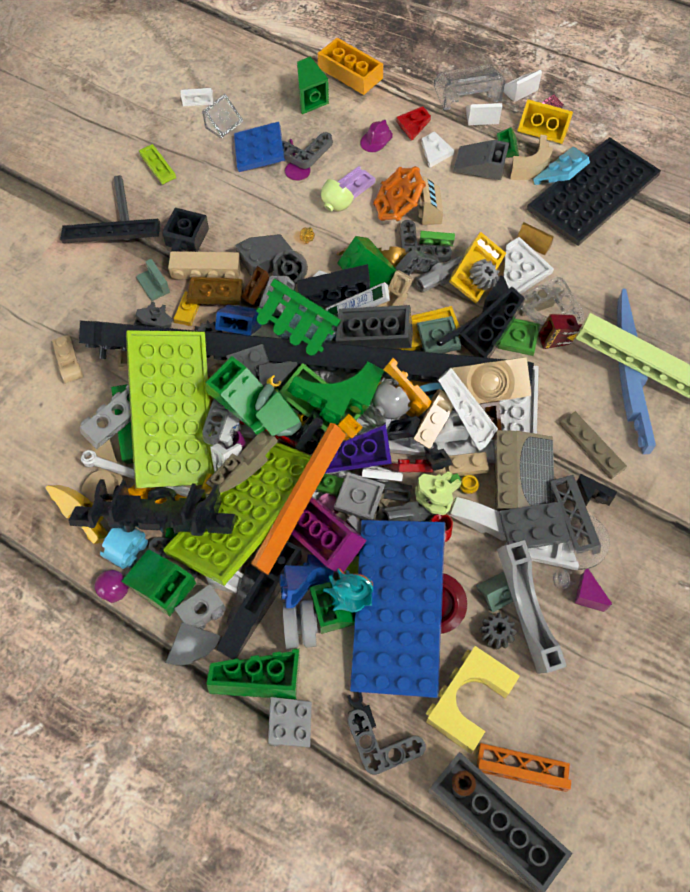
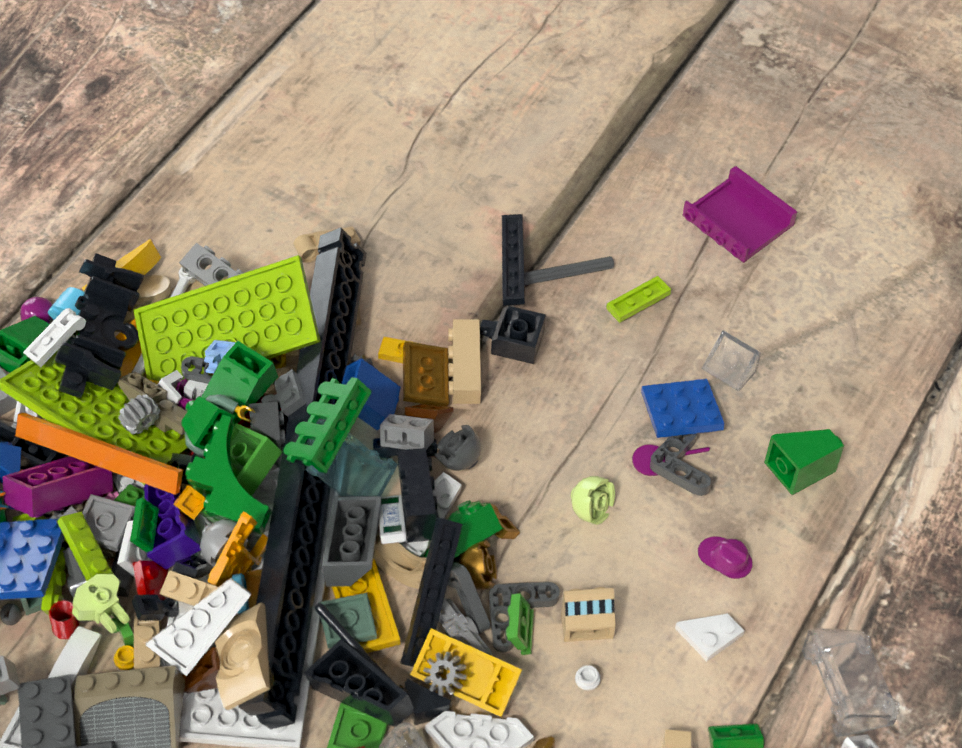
camera: 85 degrees right, 10 degrees down
(84, 103) = (741, 215): none -> magenta panel
(153, 281) = (443, 313): sand green panel -> none
(153, 316) = (375, 314): dark grey hinge -> none
(174, 539) = (53, 336): none -> white plate
(197, 97) = (775, 333): white panel -> none
(201, 409) = (215, 353): none -> light blue plate
(261, 251) = (492, 421): dark grey slope -> none
(261, 467) = (139, 414): none -> light grey gear
(307, 235) = (524, 470): clear yellow plate -> none
(350, 66) = (860, 512): light orange brick -> none
(357, 181) = (627, 527): lavender plate -> none
(368, 462) = (144, 525): none -> green plate
(389, 504) = (83, 545): none -> lime plate
(395, 200) = (592, 569): orange plate -> none
(414, 121) = (760, 603): red wing -> none
(419, 274) = (432, 587): none -> black plate
(443, 265) = (455, 624): none -> clear plate
(471, 210) = (587, 678): none -> white plate
(482, 159) = (686, 694): dark grey slope -> none
(483, 114) = (796, 701): white slope -> none

